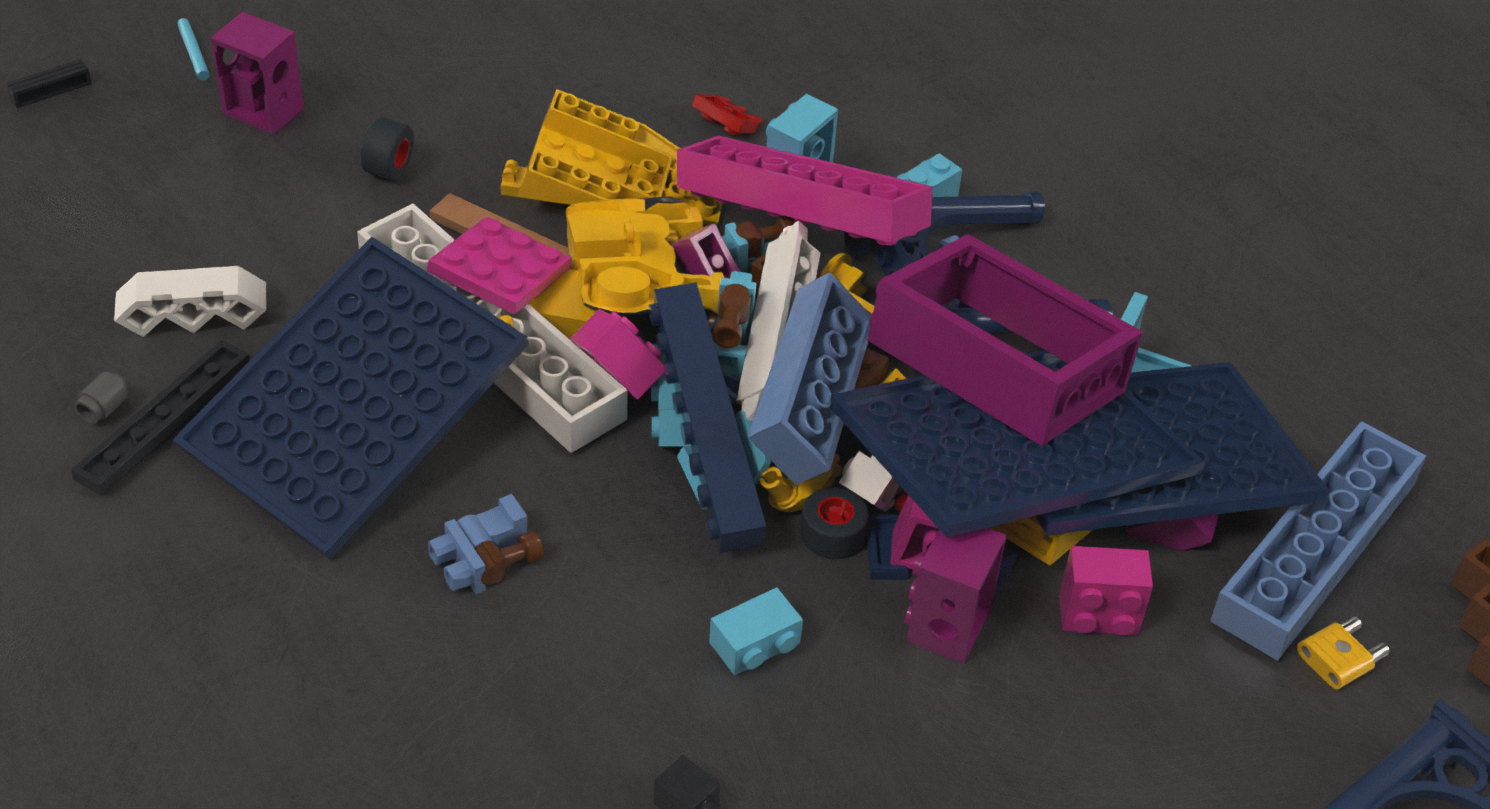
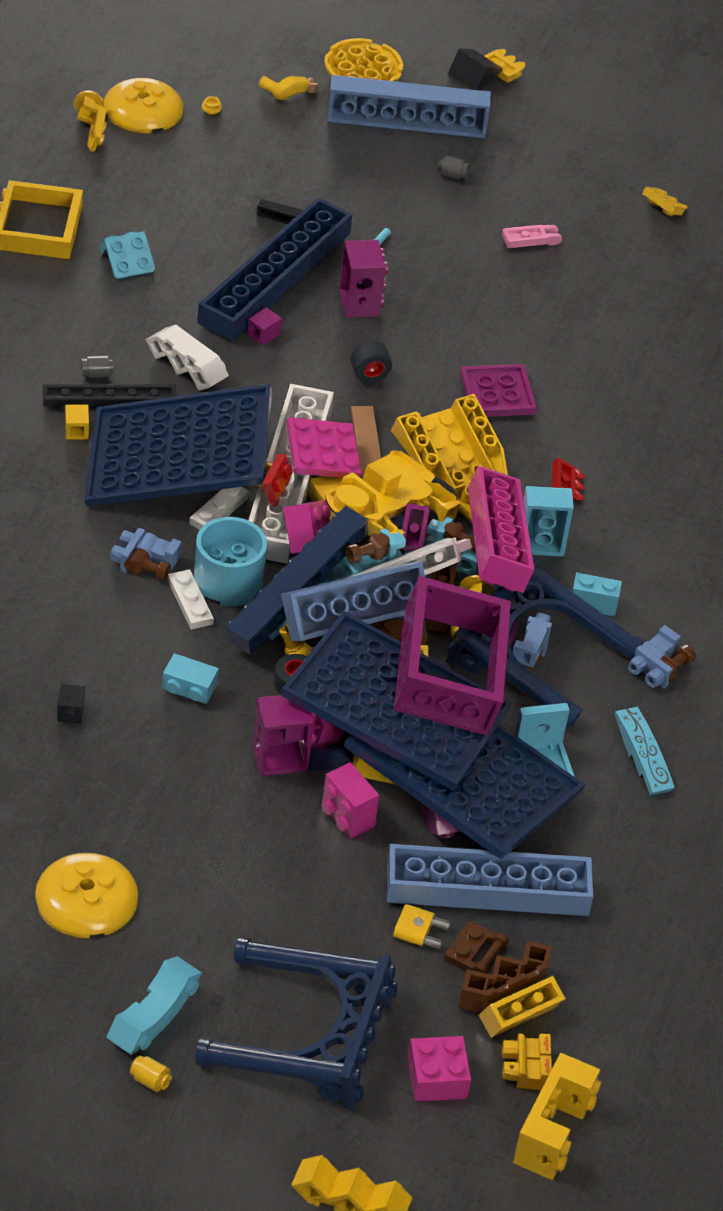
camera: 50 degrees right, 0 degrees up
(140, 143) = (274, 268): none -> dark blue brick
(176, 476) = (76, 422): none -> yellow brick
(215, 205) = (264, 326): none -> magenta brick
(474, 441) = (219, 506): none -> white plate
(527, 80) = (500, 389): none -> magenta plate
(539, 335) = (277, 479): none -> red plate
(598, 464) = (230, 560): none -> medium azure brick
(601, 550) = (190, 599): none -> white plate
(1068, 204) = (655, 658): none -> medium blue hips
(1186, 284) = (644, 750): none -> medium azure slope
(1400, 624) = (470, 943): none -> reddish brown plate

